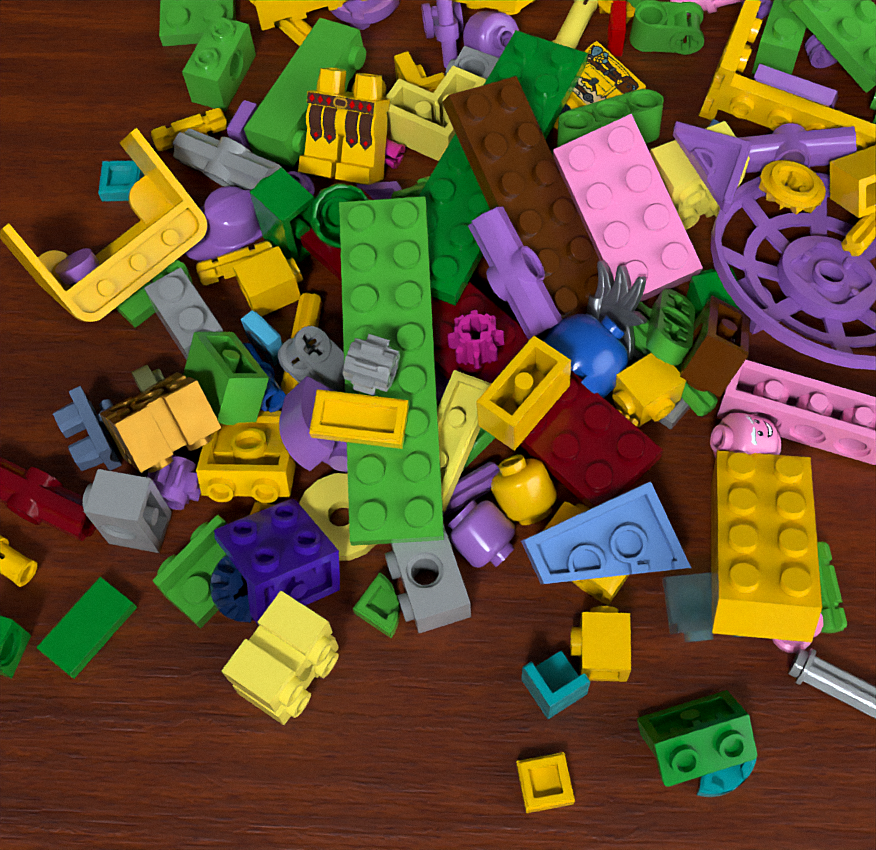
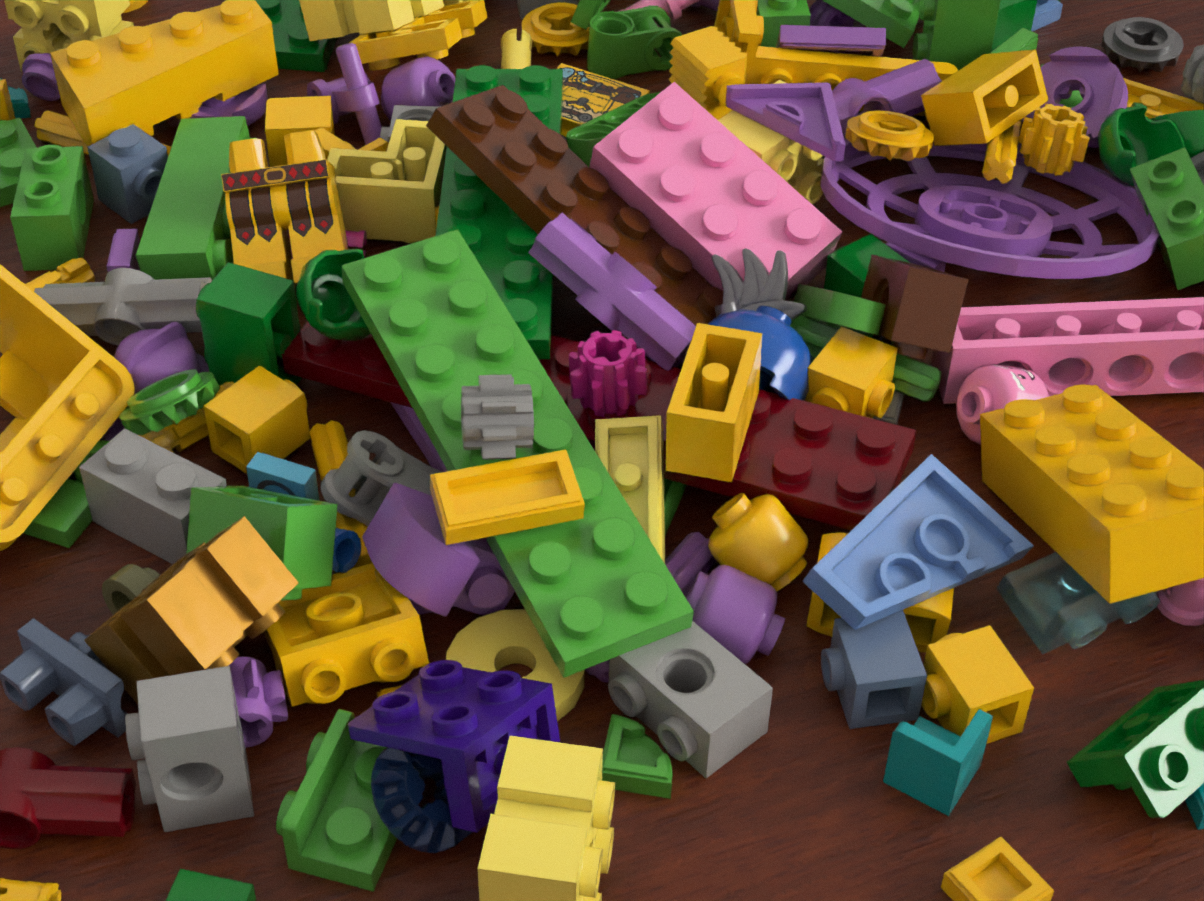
camera: 30 degrees left, 20 degrees down
(219, 250) = (169, 401): none -> bright green gear
(275, 44) = (128, 171): none -> sand blue brick
(398, 36) = (292, 116): none -> yellow panel
(548, 609) = (875, 671): none -> sand blue brick
(616, 27) = (571, 46): red tile -> none
(686, 92) = (705, 66): none -> yellow brick

